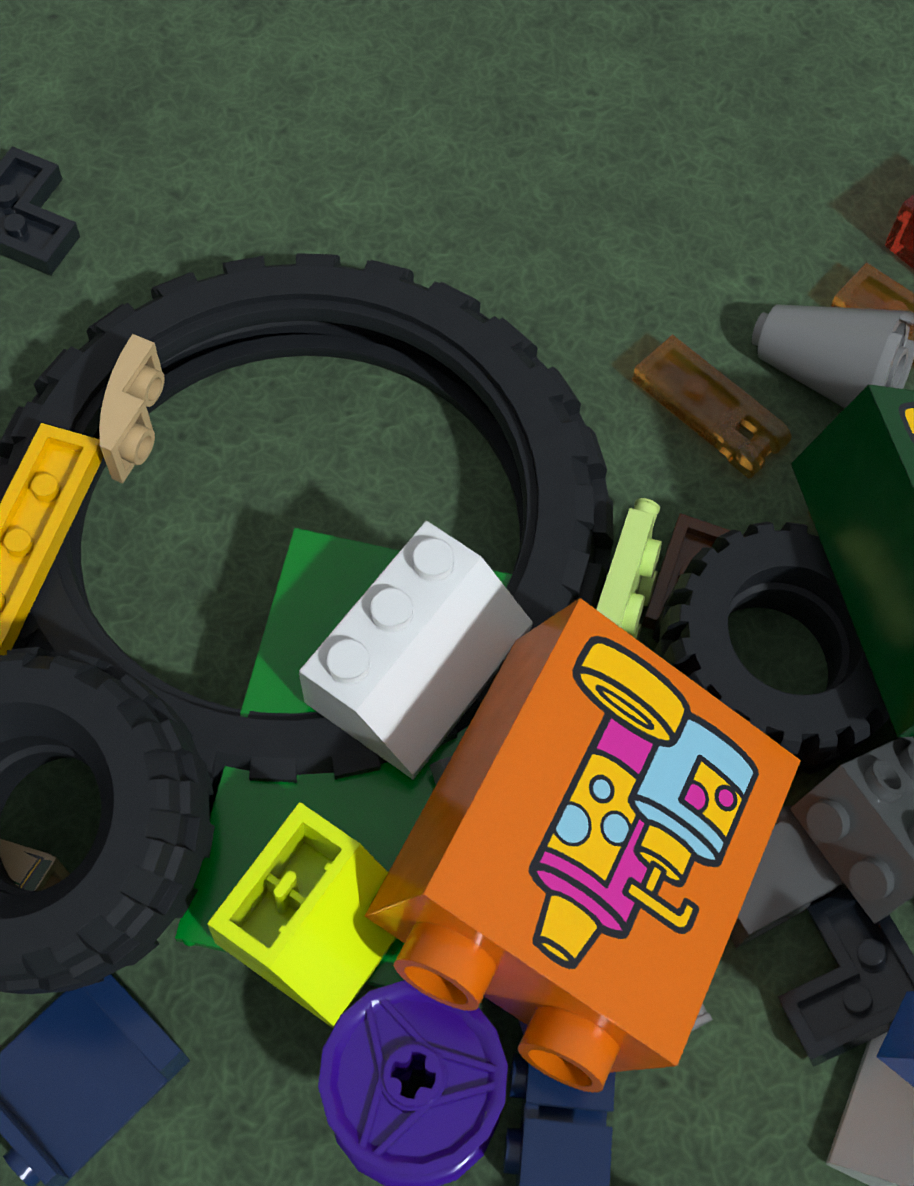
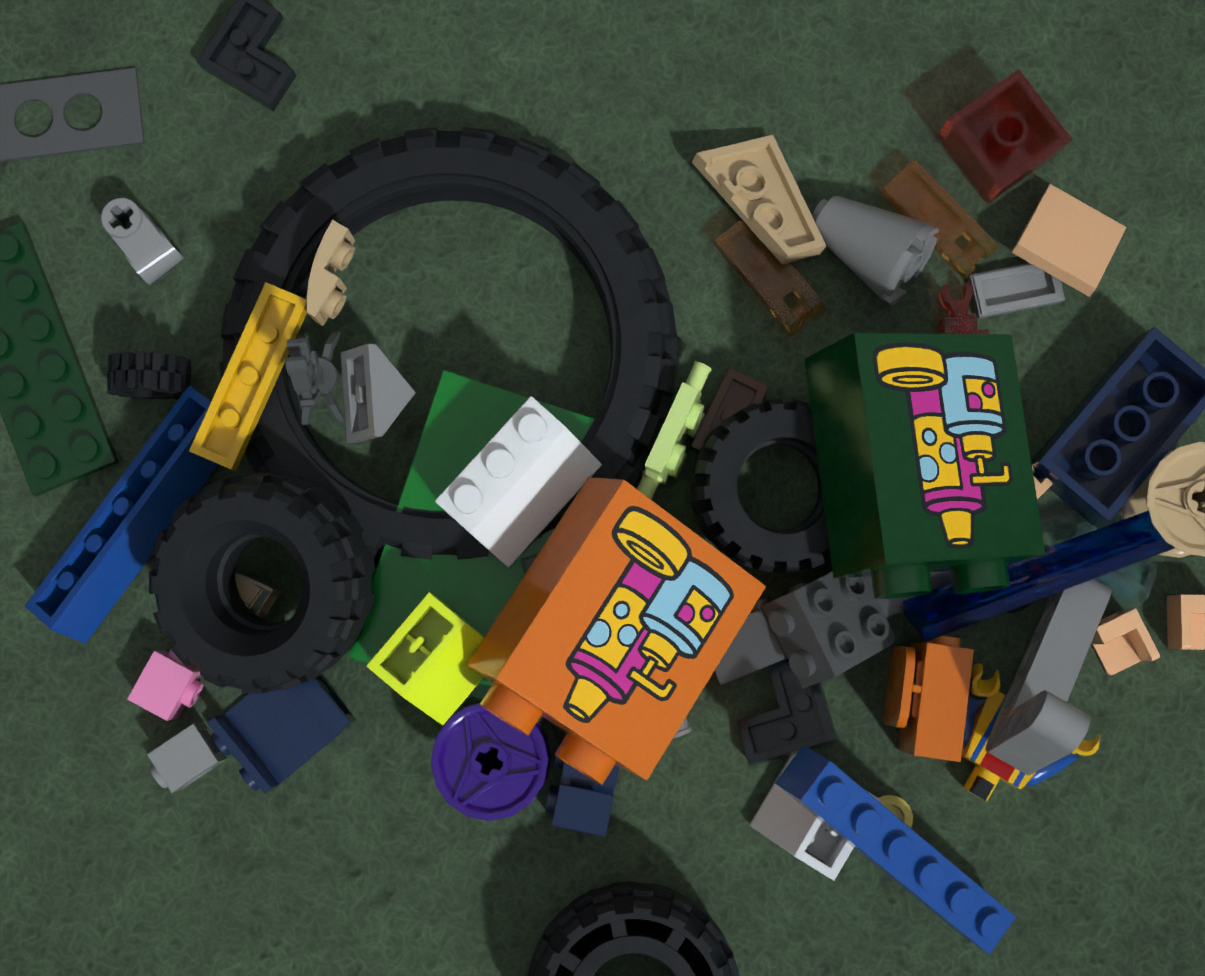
camera: 10 degrees right, 20 degrees up
(116, 536) = (312, 375): none -> dark grey piece
(193, 552) = (371, 392): none -> light grey slope
(690, 312) = (765, 196): none -> tan wing

